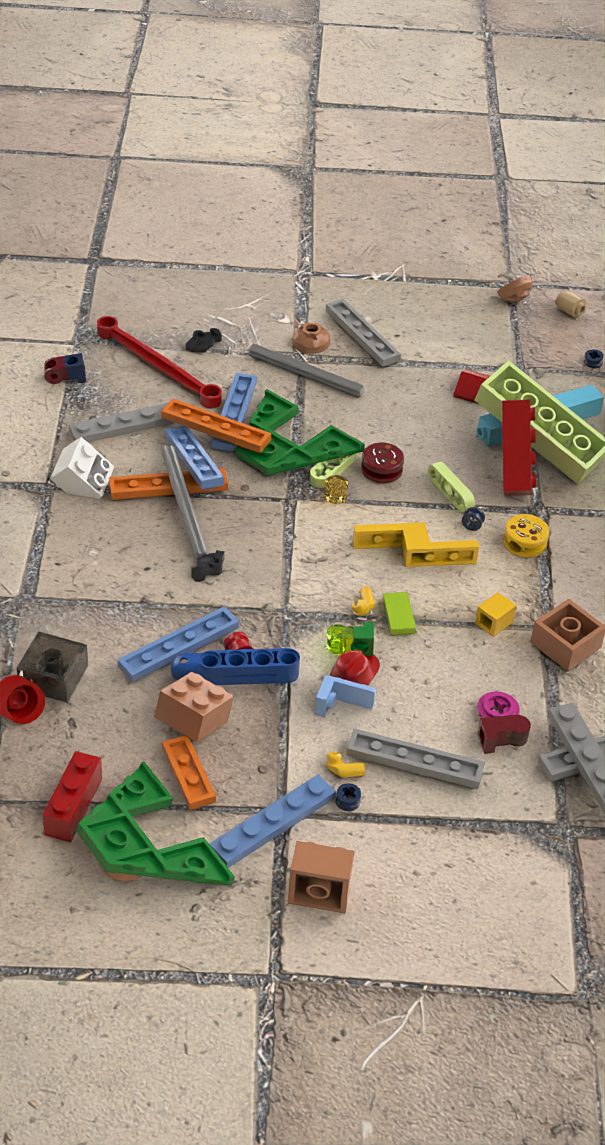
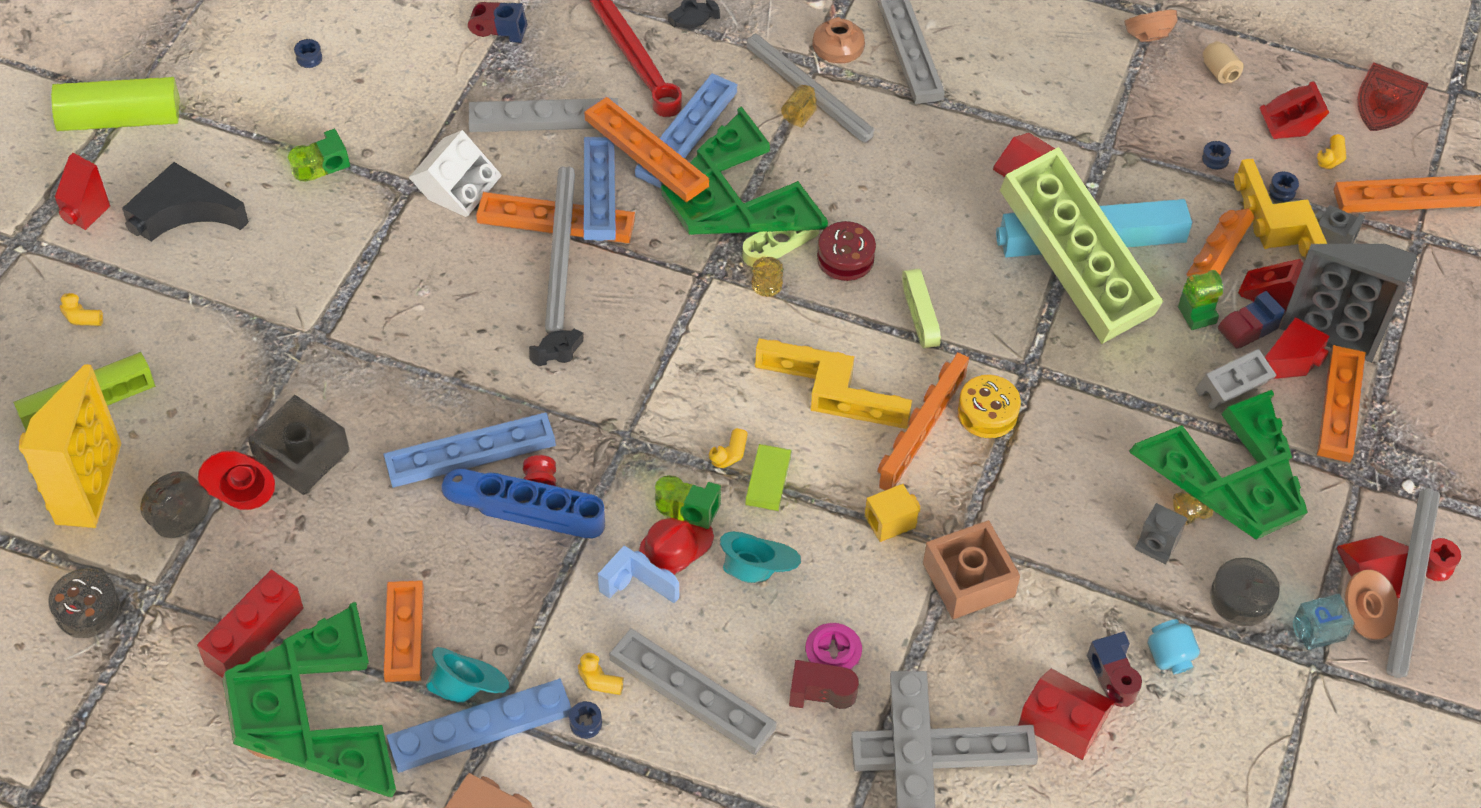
camera: 20 degrees right, 10 degrees up
(194, 706) = (443, 545): nougat brick -> none
(247, 792) = (461, 677): none -> teal piece
(306, 381) = (800, 105): none -> clear yellow brick
(418, 665) = (756, 558): none -> teal piece
(470, 523) = (928, 363): dark blue bush -> none
(487, 554) = (922, 421): none -> orange plate
(517, 447) = (1024, 276): red brick -> none

